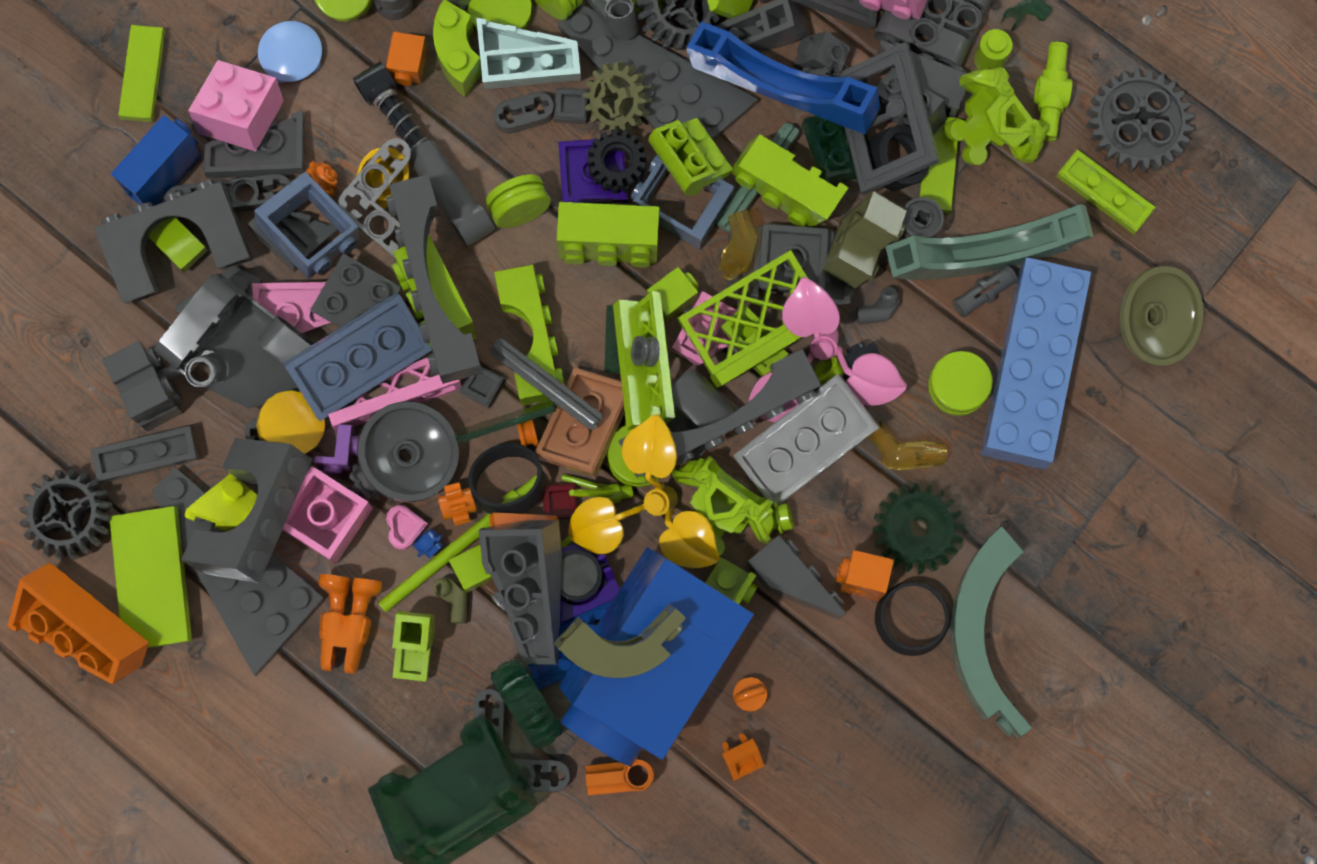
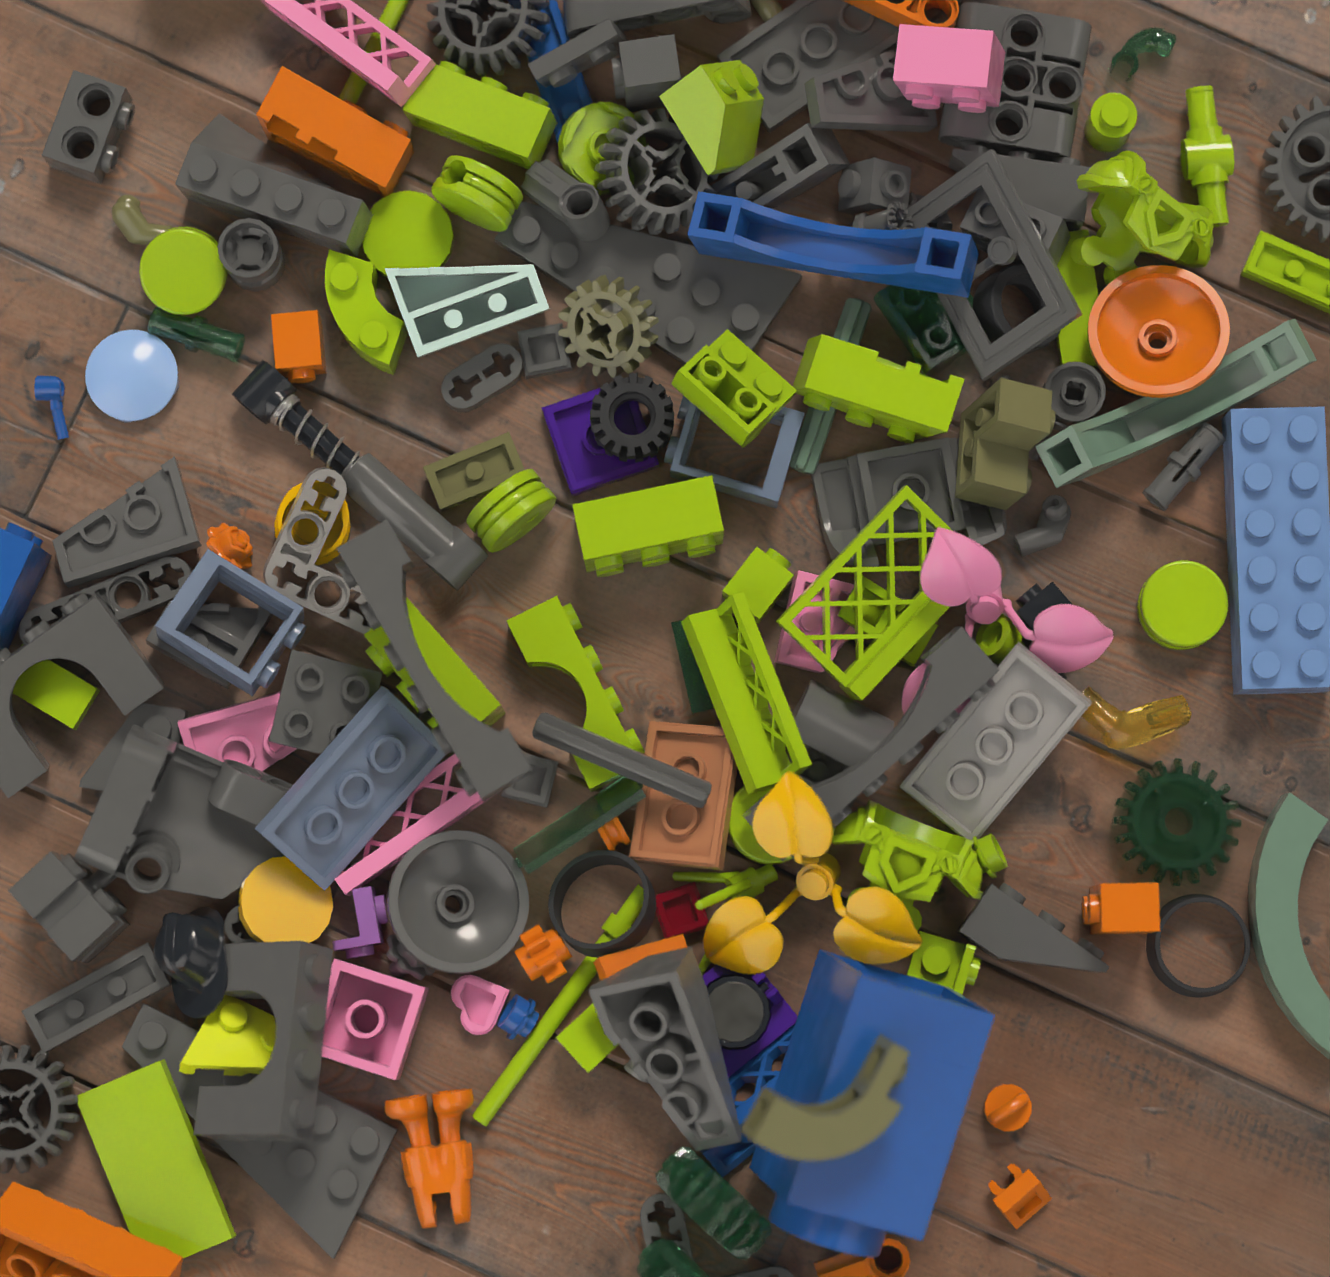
camera: 10 degrees left, 5 degrees up
(217, 442) = (195, 958): none -> black piece
(232, 46) = (53, 390): none -> blue hand
(236, 105) = (83, 477): bright pink brick -> none
(340, 35) = (196, 334): none -> clear green pin
(413, 645) = (538, 1164): lime brick -> none
(455, 596) = (574, 1080): olive arm -> none
(491, 171) = (473, 471): none -> olive plate
(645, 351) = (745, 681): dark grey bush -> none
(741, 247) = (835, 496): clear yellow arm -> none
(991, 179) = (1164, 306): none -> orange dish

